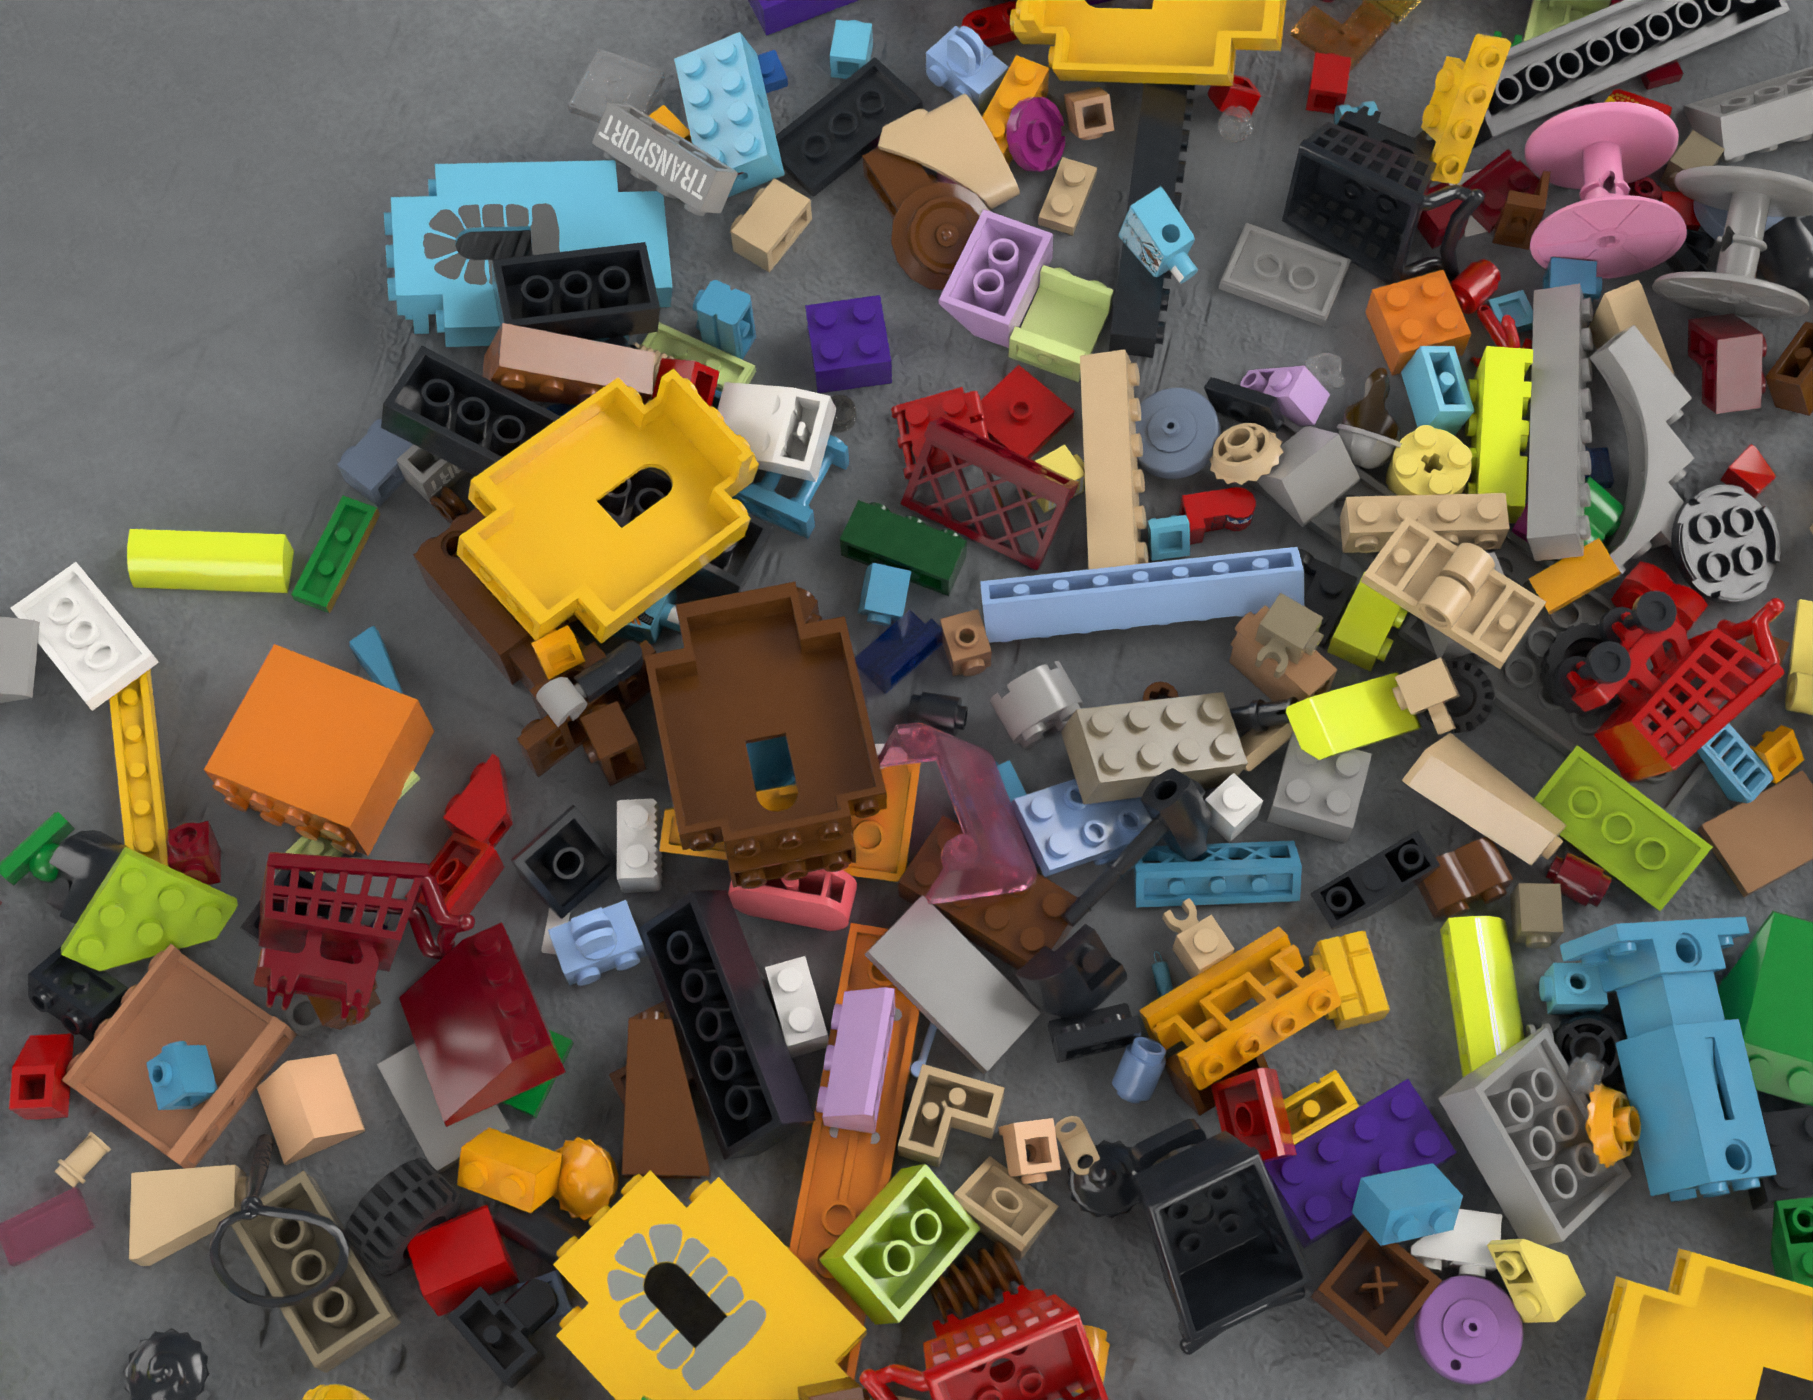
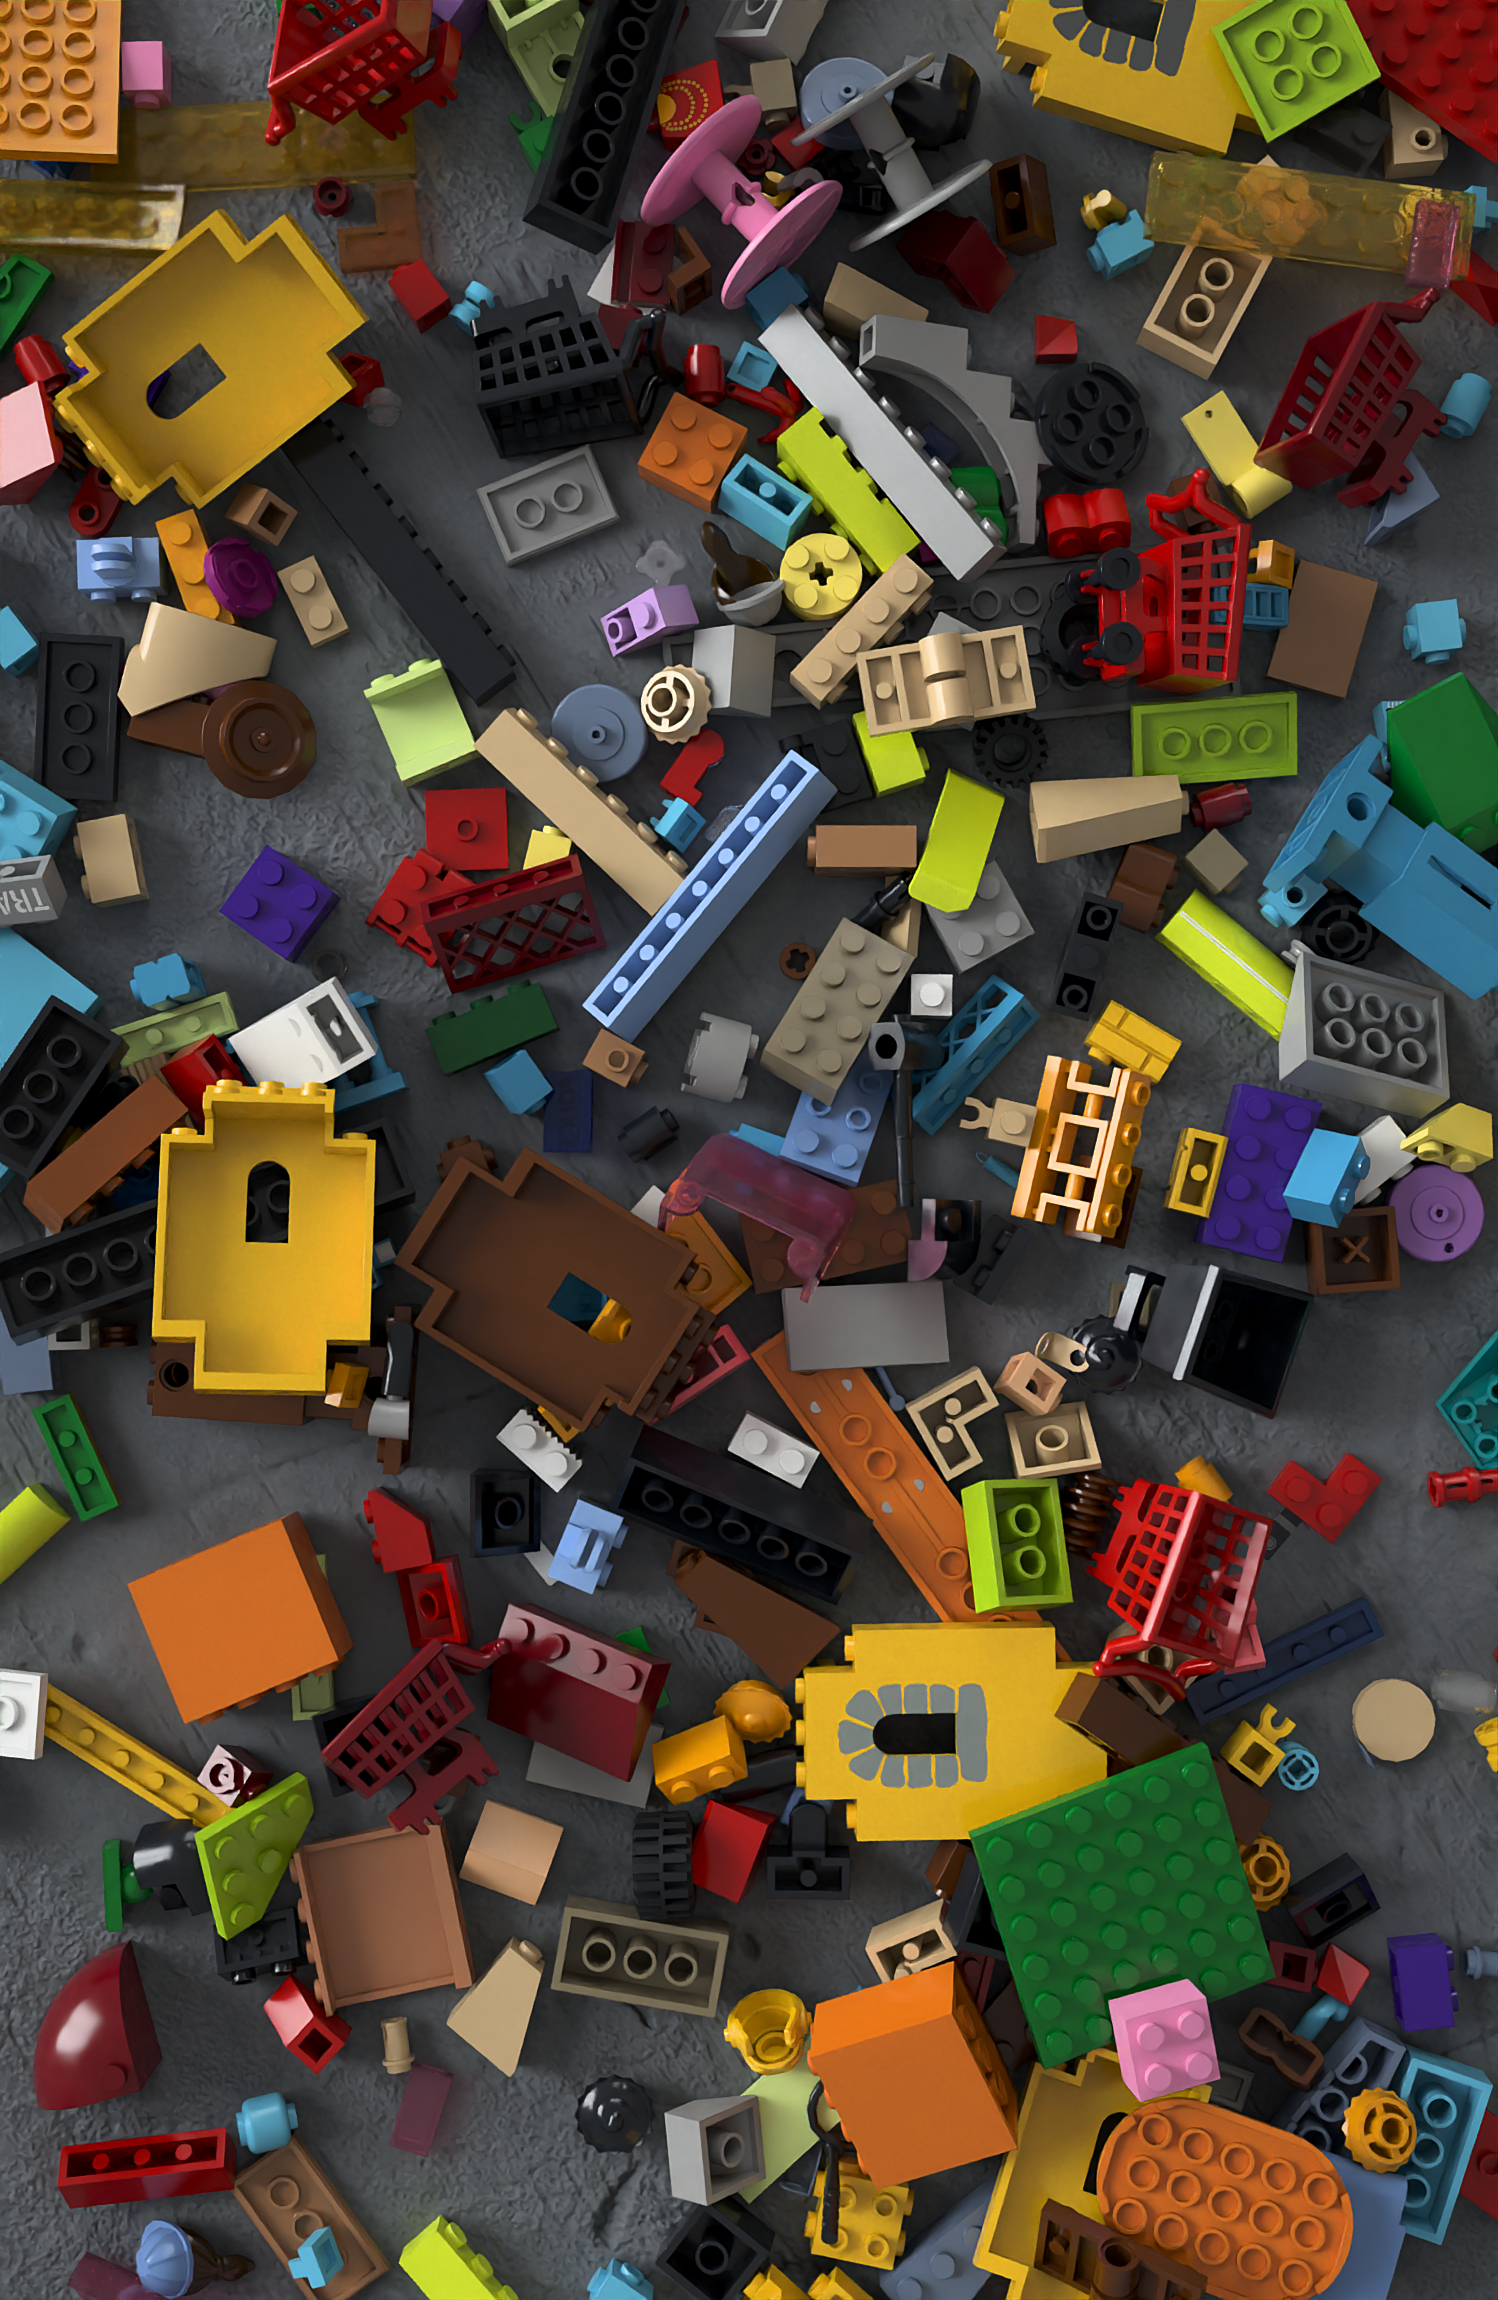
camera: 50 degrees left, 20 degrees up
(181, 1076) = (404, 1928): dark azure brick -> none
(250, 1209) = (564, 1969): black piece -> none
(374, 658) = (201, 1506): dark azure slope -> none
(611, 742) = (443, 1397): reddish brown brick -> none
(857, 1059) = (861, 1453): lavender slope -> none
(997, 276) = (336, 735): lavender slope -> none
(1139, 1070) = (1051, 1256): medium blue brick -> none
(1159, 236) = (423, 580): medium azure torso -> none
(1244, 404) = (631, 660): black plate -> none
(1255, 1112) = (1172, 1221): red slope -> none
(1287, 633) = (858, 836): dark tan brick -> none
(1428, 689) = (992, 770): tan brick -> none
(1461, 103) = (564, 237): yellow bracket -> none
(1574, 576) = (1009, 574): light orange tile -> none
(1585, 1074) = (1359, 960): clear plate -> none
(1611, 1124) = (1407, 978): light orange piece -> none

